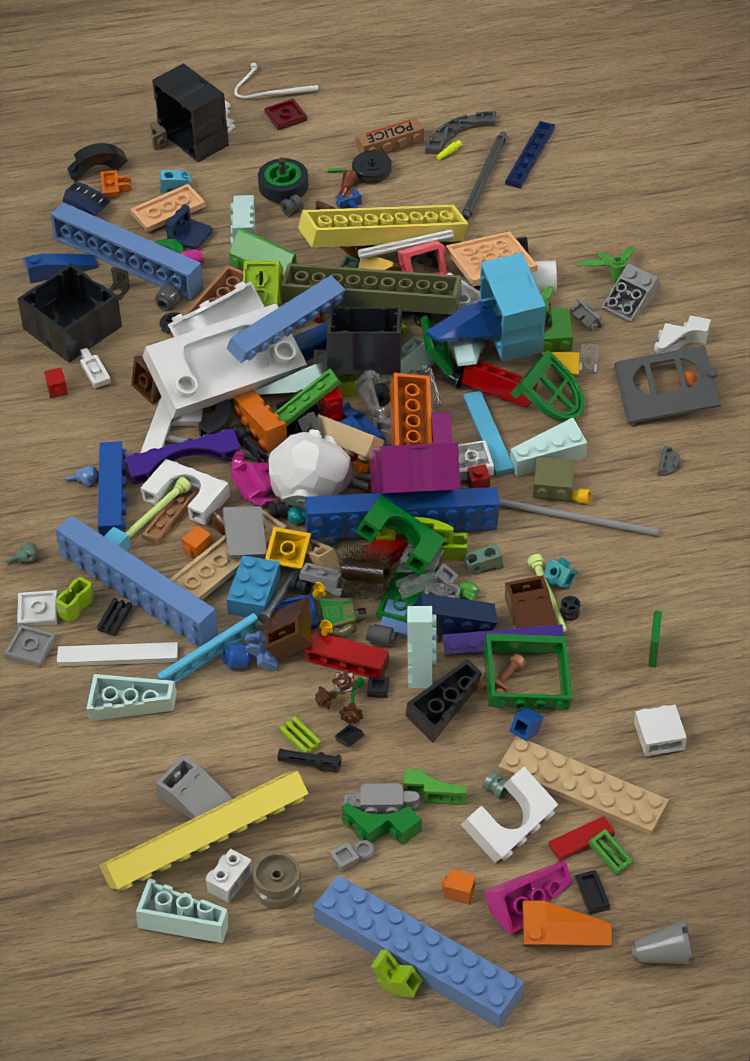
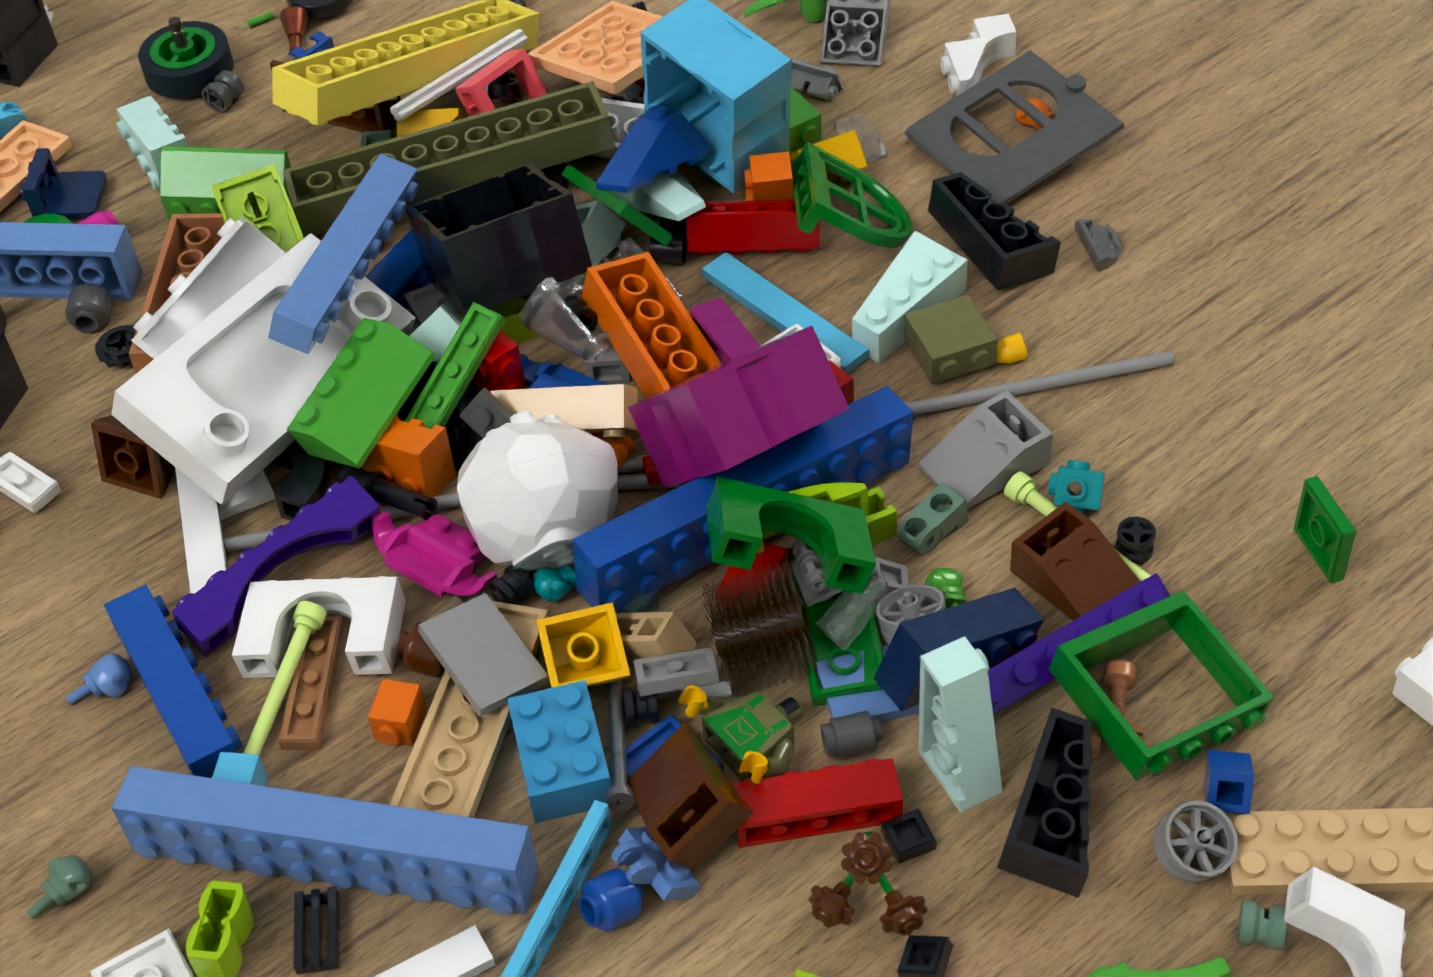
camera: 25 degrees left, 0 degrees up
(258, 391) = (360, 393): none -> bright green slope
(493, 740) = (1195, 842): none -> light grey wheel
(519, 360) = (769, 177): none -> orange brick
(531, 537) = (989, 449): none -> light grey slope
(613, 435) = (990, 232): none -> black wedge

